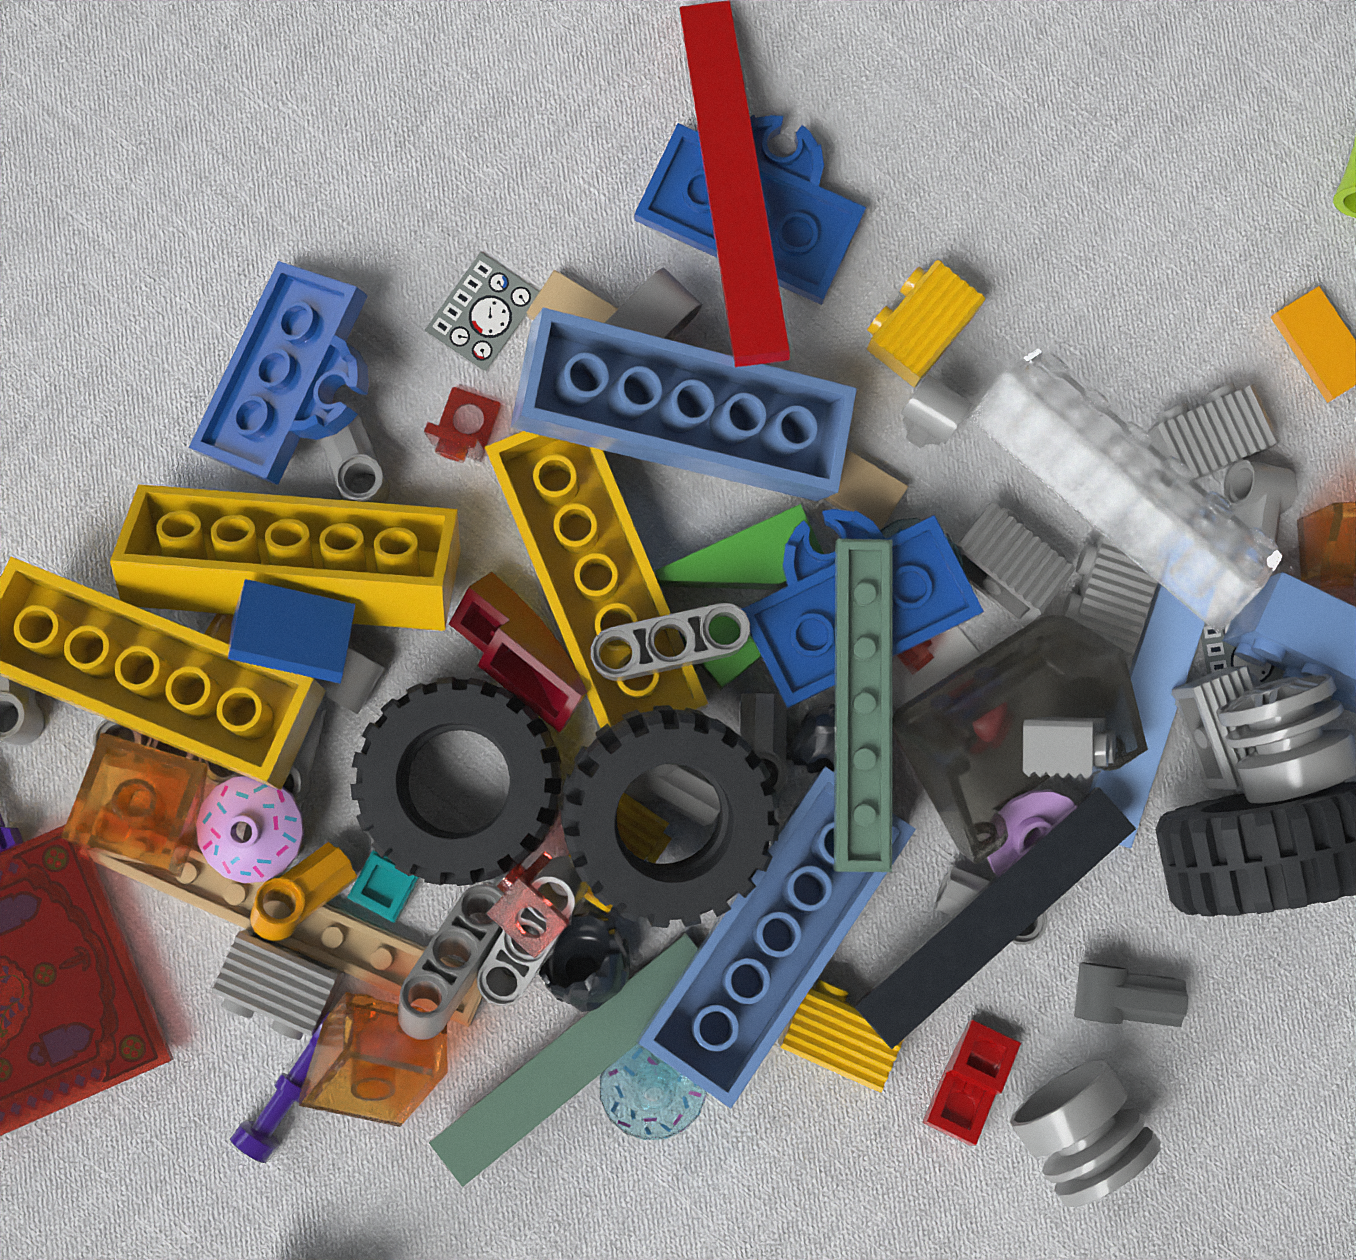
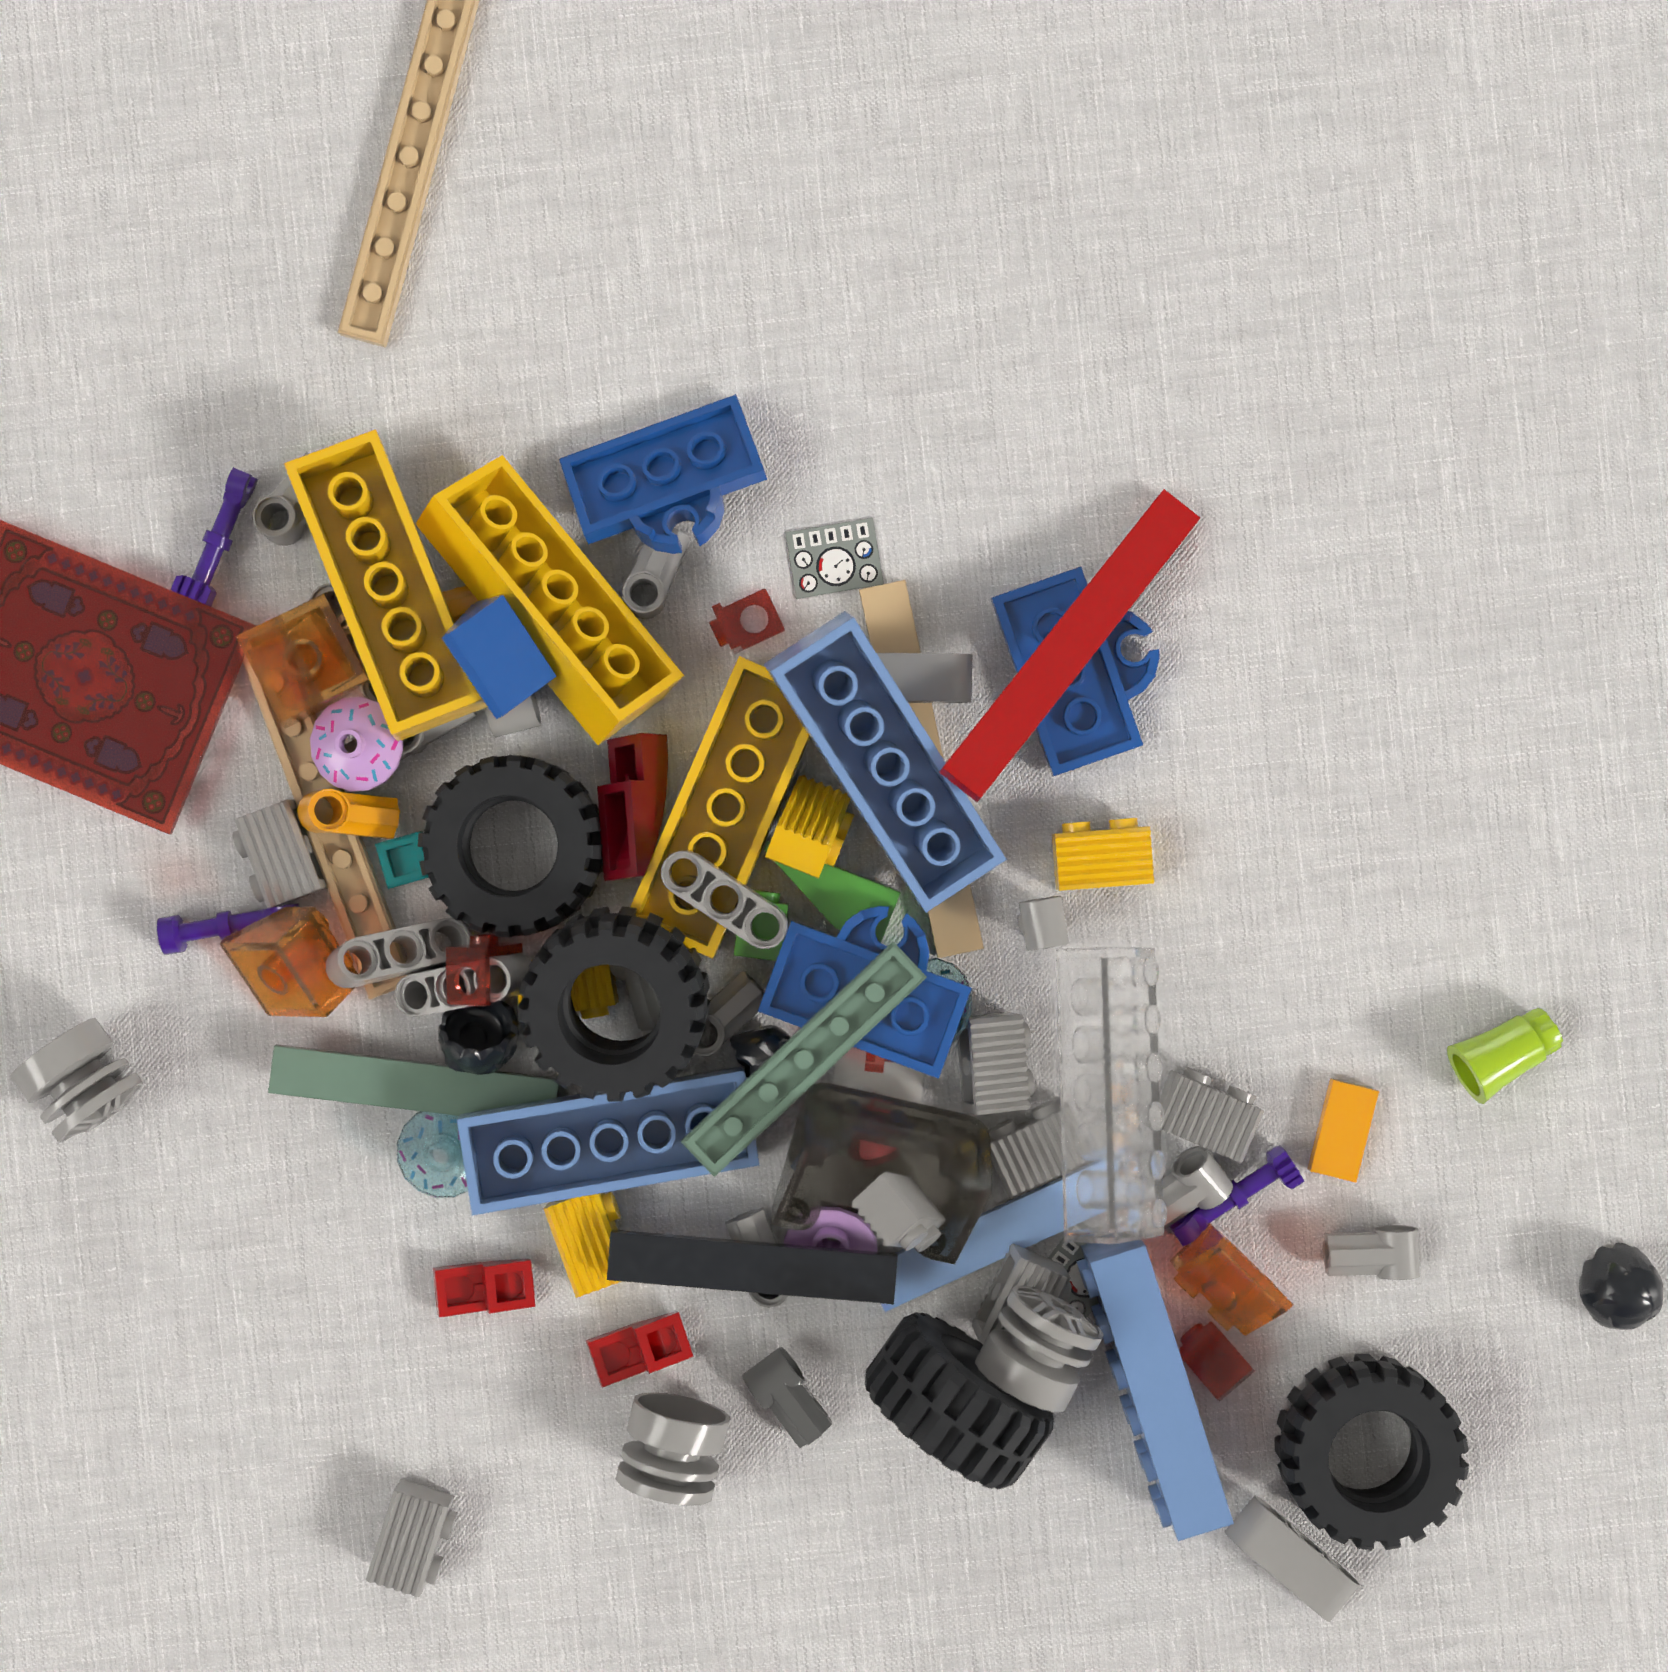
camera: 50 degrees right, 5 degrees up
(679, 525) = (811, 827): none -> yellow brick
(797, 1164) = (484, 1287): none -> red slope
(1306, 419) = (1278, 1167): none -> dark purple piece

